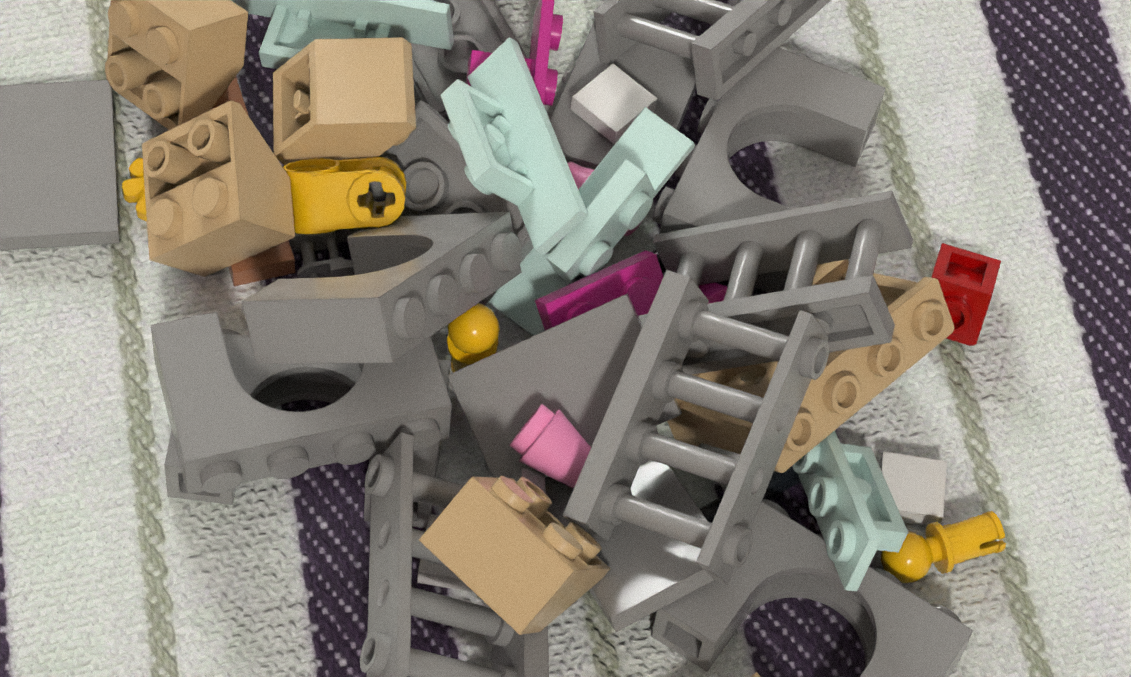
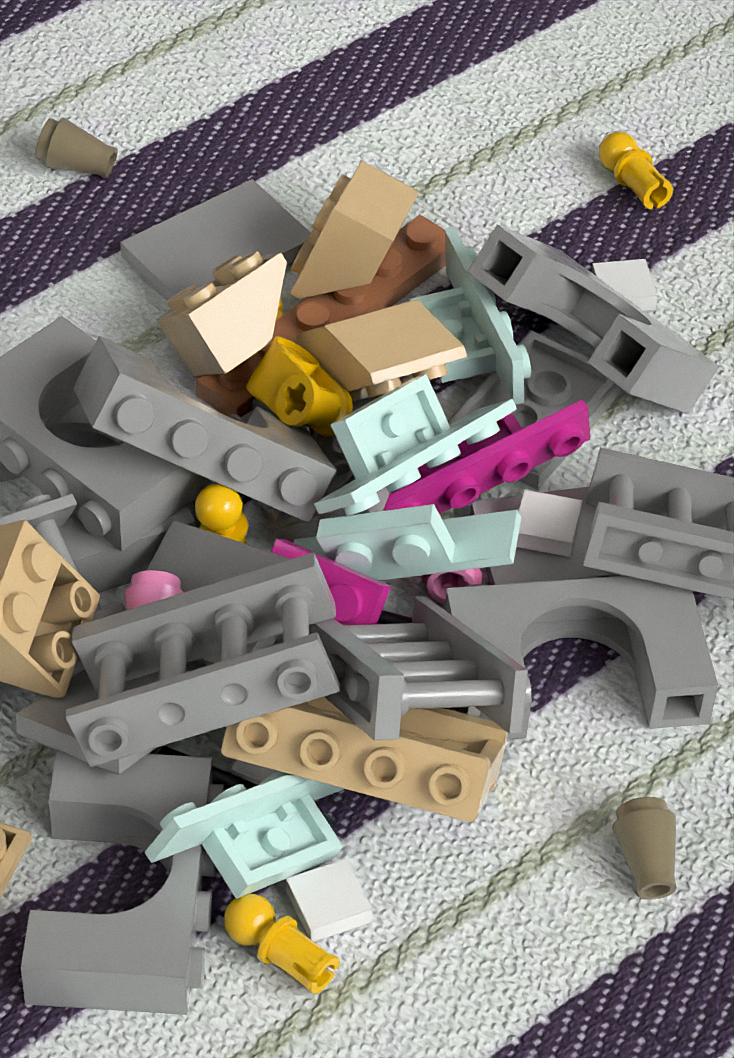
camera: 65 degrees right, 10 degrees down
(967, 287) = (564, 841): red bracket -> none
(993, 232) = (648, 843): none -> dark tan cone

